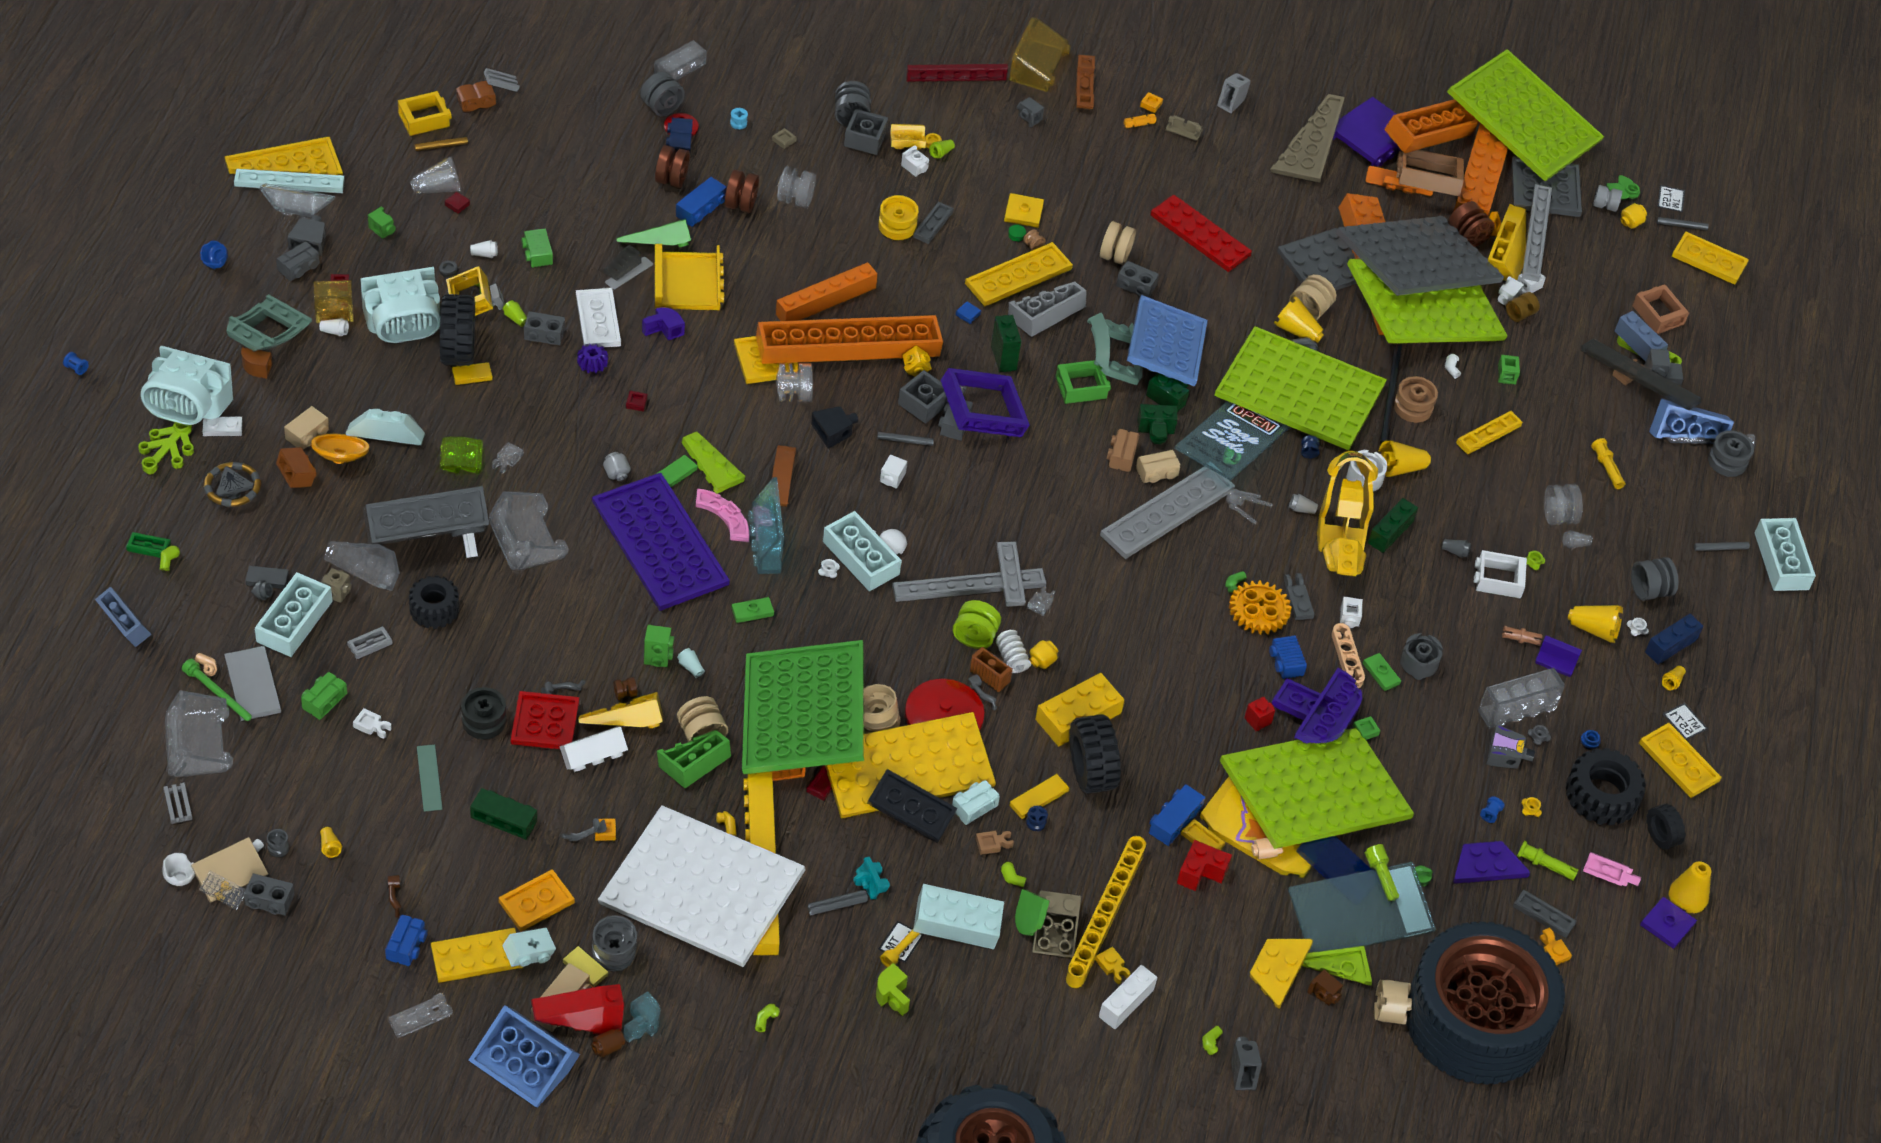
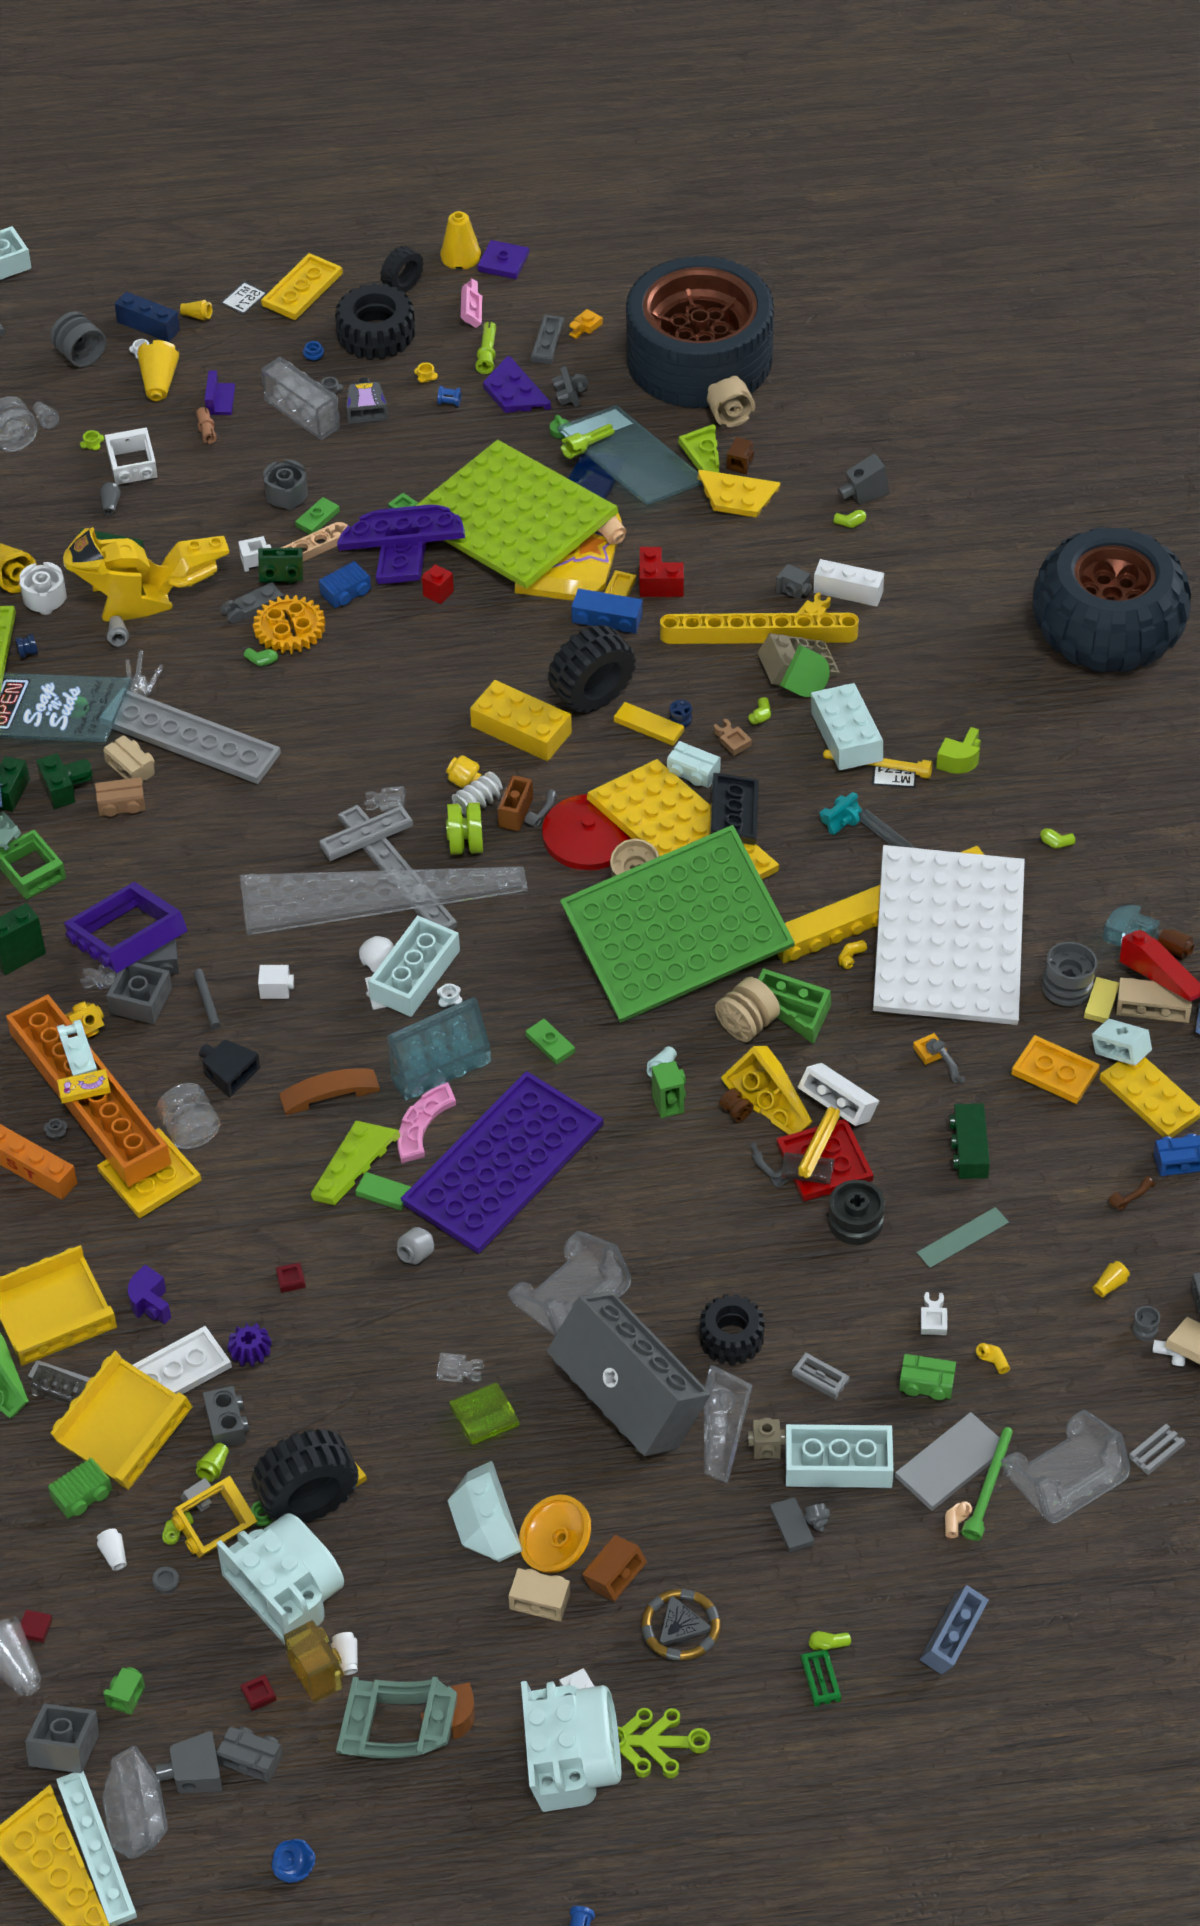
camera: 105 degrees left, 0 degrees up
(321, 743) = (993, 1355): none -> yellow arm
(364, 180) = (62, 1738): none -> dark grey brick
(539, 700) = (821, 1174): none -> clear smoke tile
(553, 710) = (818, 1142): none -> yellow axle
(573, 278) = (121, 1420): none -> yellow panel
(841, 325) = (83, 1086): none -> yellow tile
(877, 333) = (77, 1048): none -> light aqua plate
(961, 531) = (308, 899): none -> clear wing
(1149, 957) = (793, 582): none -> dark grey brick
(1326, 619) = (280, 564): none -> dark green brick
(1468, 899) = (572, 385): none -> dark grey hips

